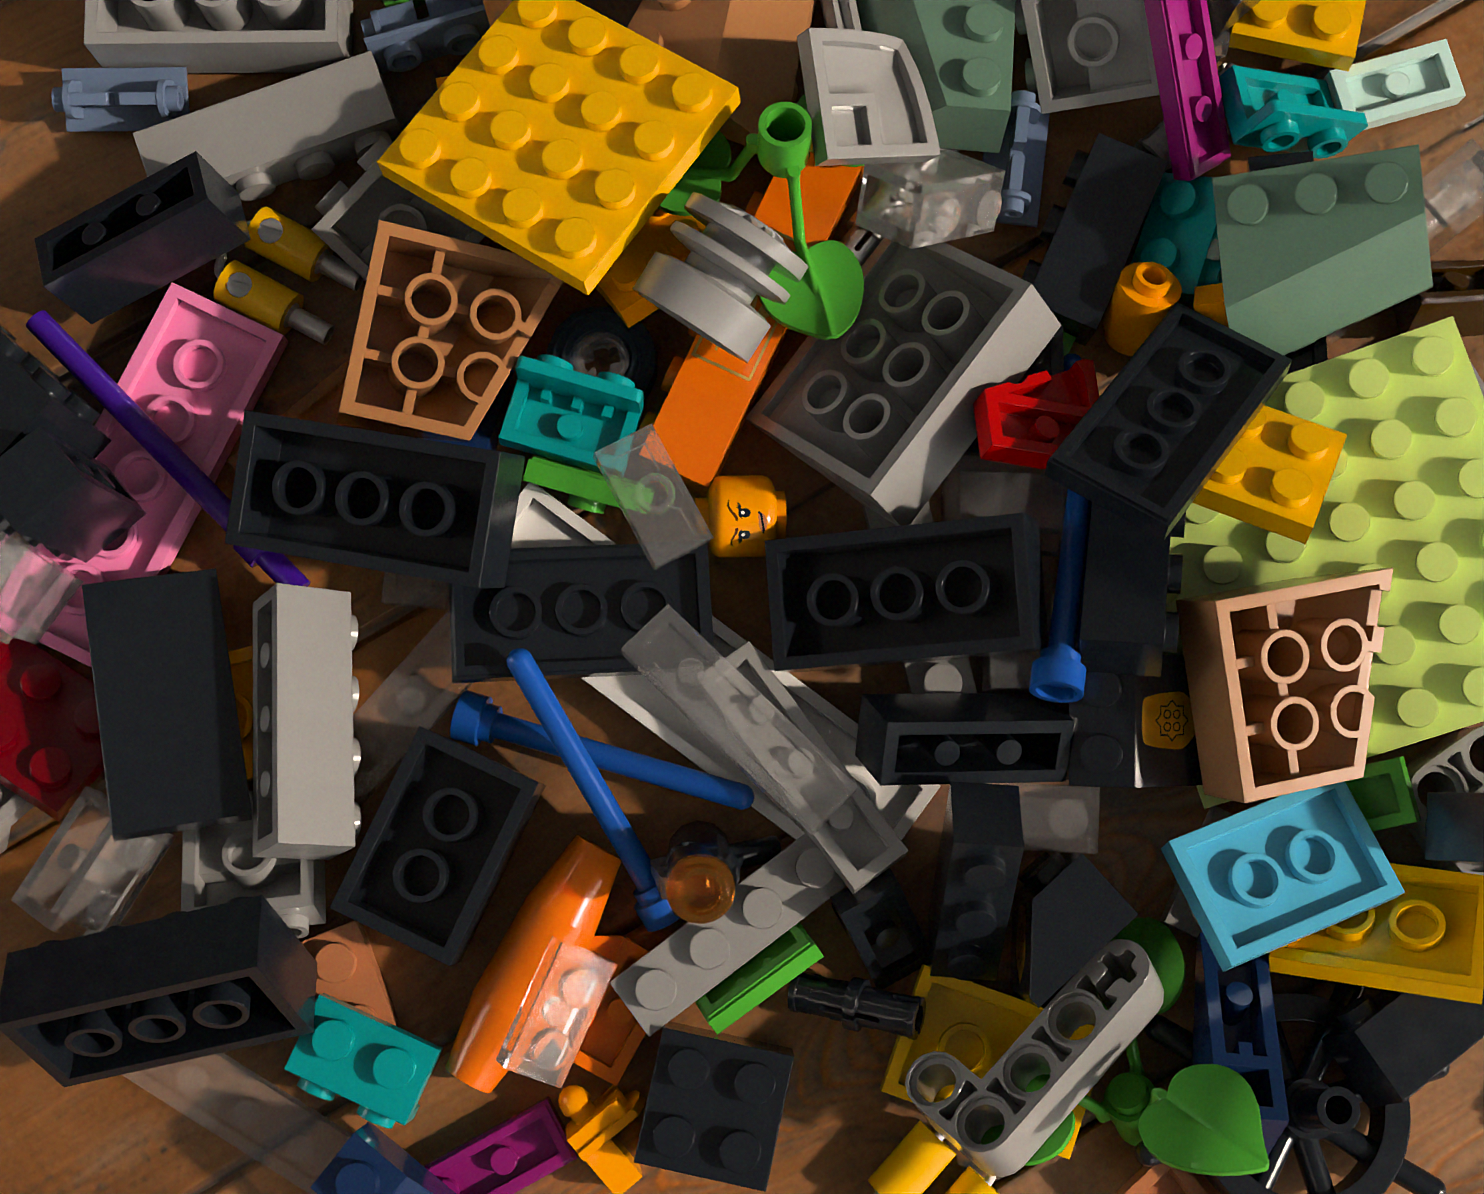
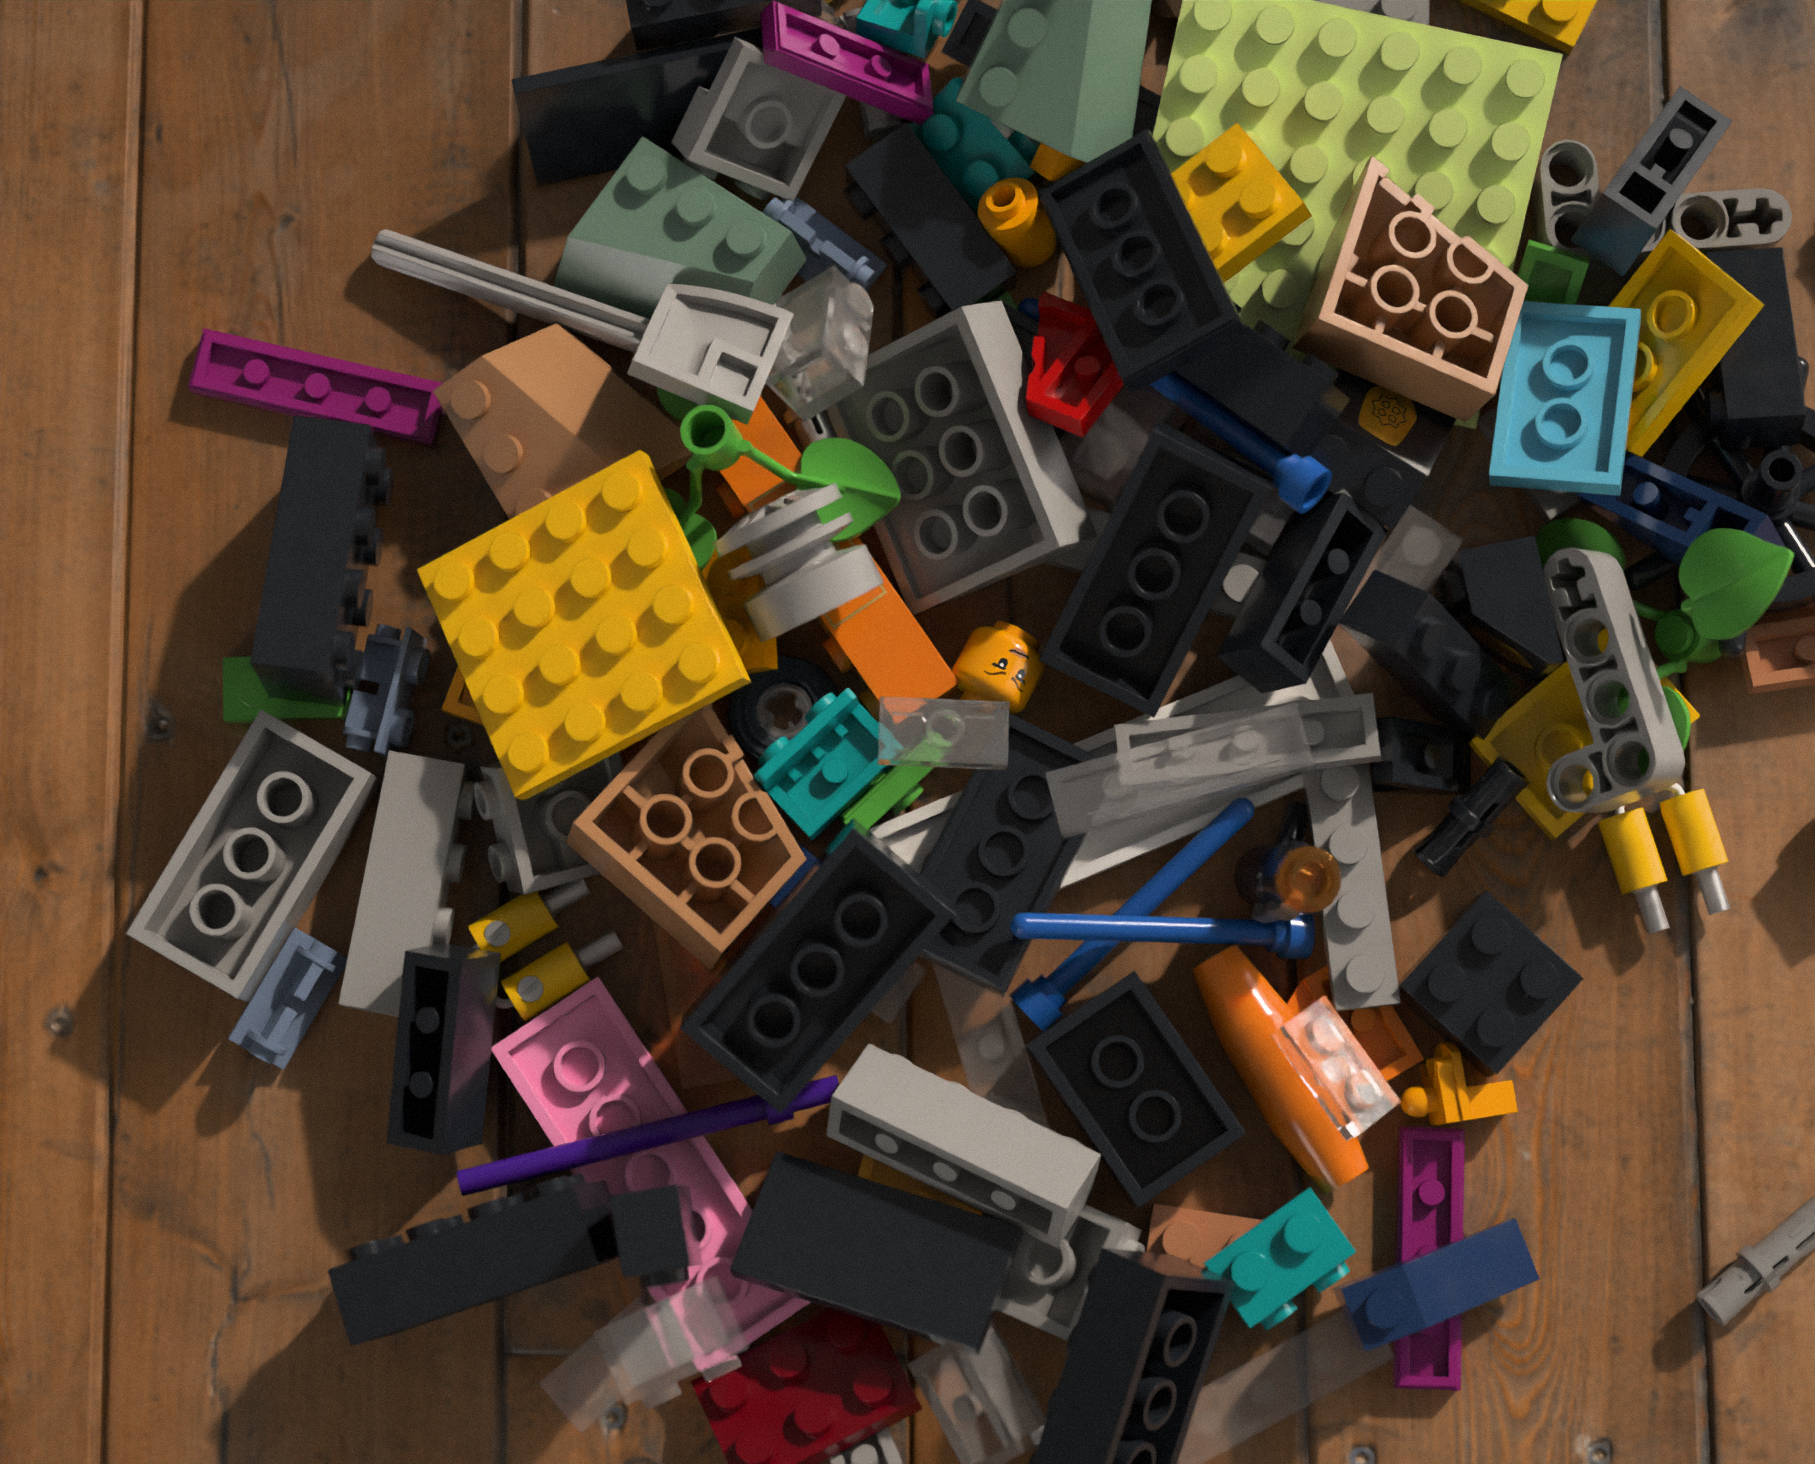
camera: 55 degrees left, 0 degrees up
(759, 978) = (1404, 884): bright green plate -> none

